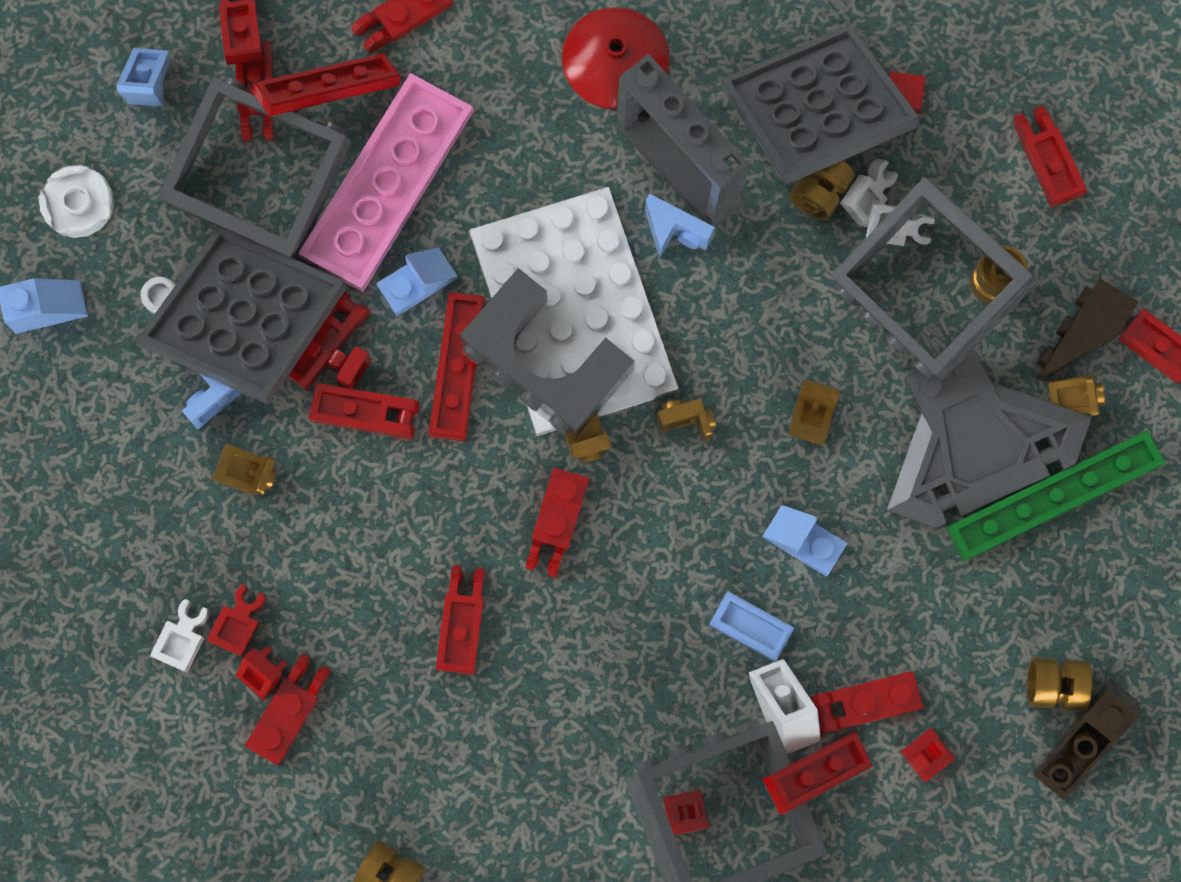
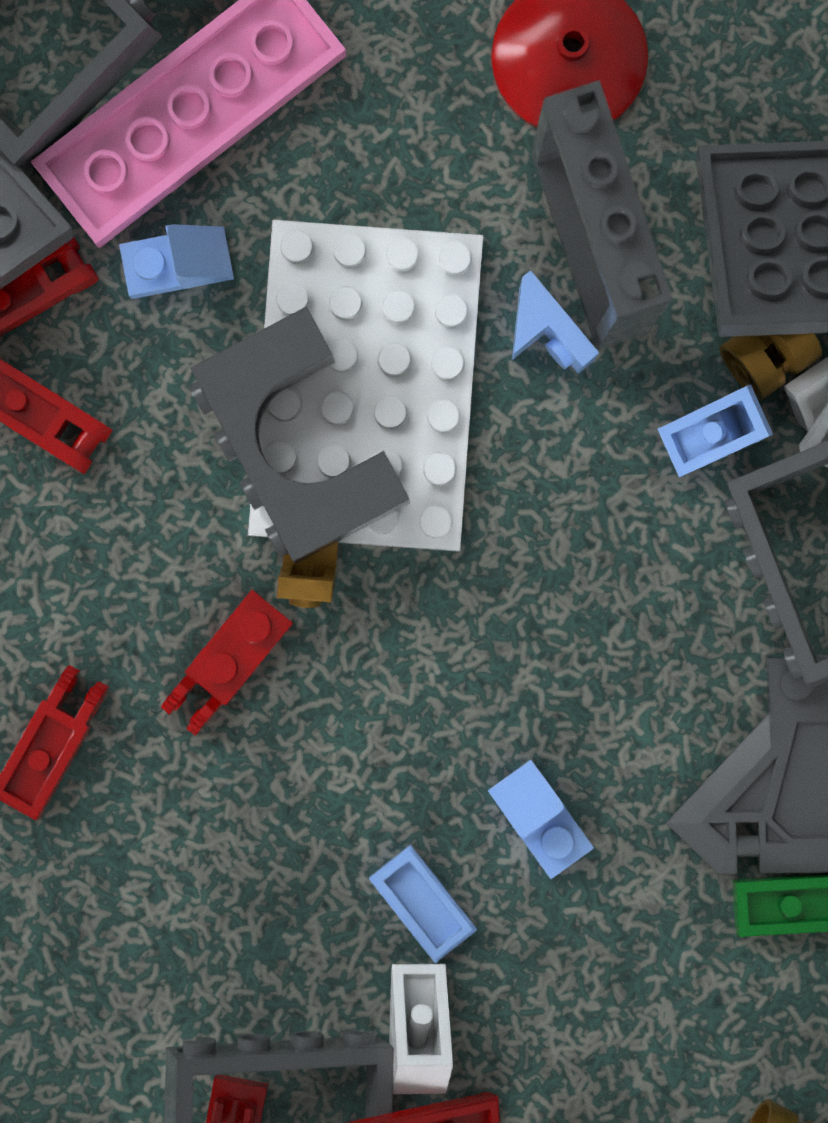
camera: 25 degrees right, 10 degrees up
(350, 367) = (38, 347): red tile -> none
(455, 371) = (173, 412): red tile -> none
(680, 414) = (445, 585): pearl gold bracket -> none
(809, 247) = (715, 431): none -> light blue slope
(813, 412) = (624, 657): pearl gold bracket -> none
(868, 702) = (530, 1064): red plate -> none

